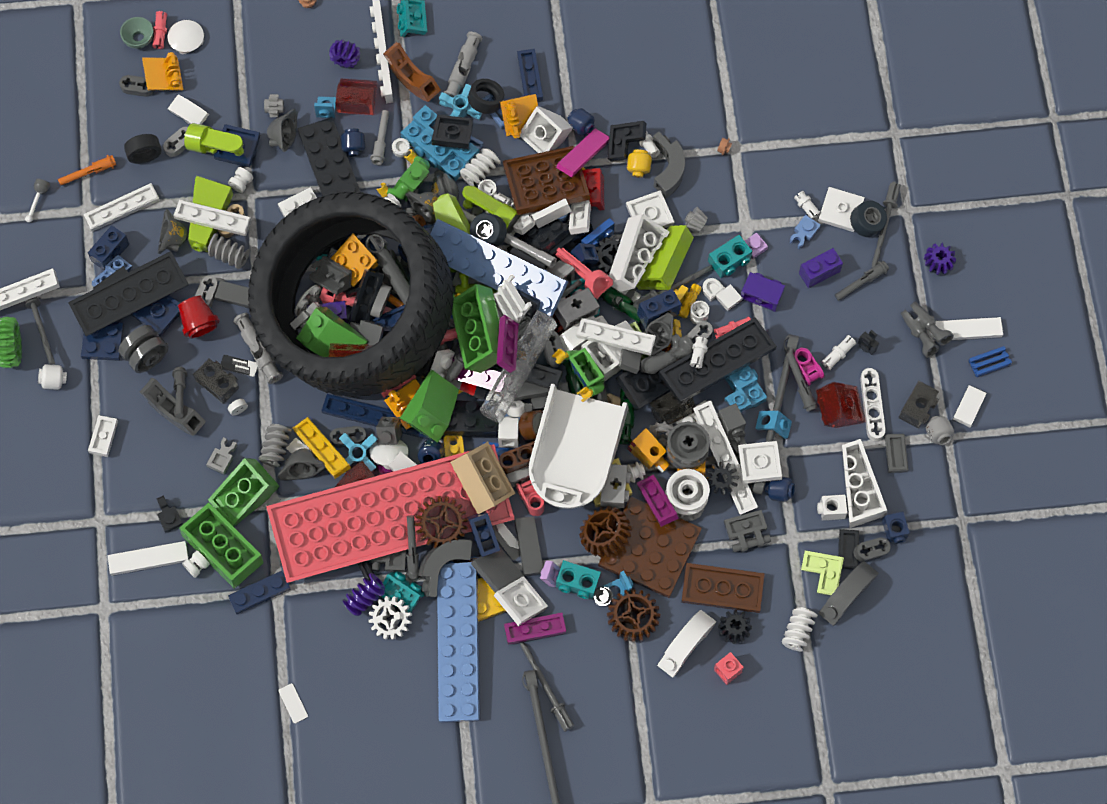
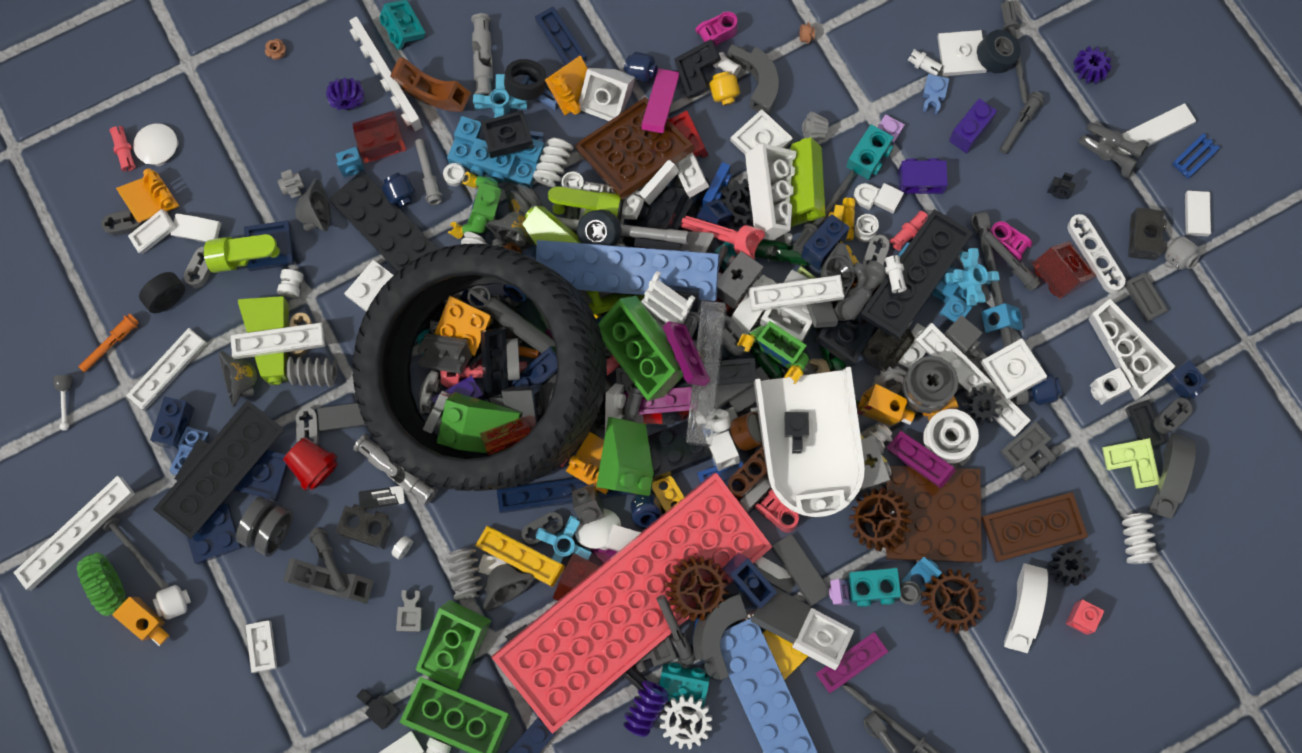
camera: 20 degrees left, 5 degrees up
(22, 375) = (133, 615): none -> light orange torso
(135, 26) = (91, 156): sand green piece -> none
(155, 100) = (152, 231): none -> white tile
(482, 478) = (721, 518): tan slope -> none
(569, 435) = (796, 427): none -> black plate
(654, 114) = (715, 30): none -> dark pink piece
(766, 377) = (972, 277): none -> medium azure pin
(838, 352) = (1034, 211): white pin -> none

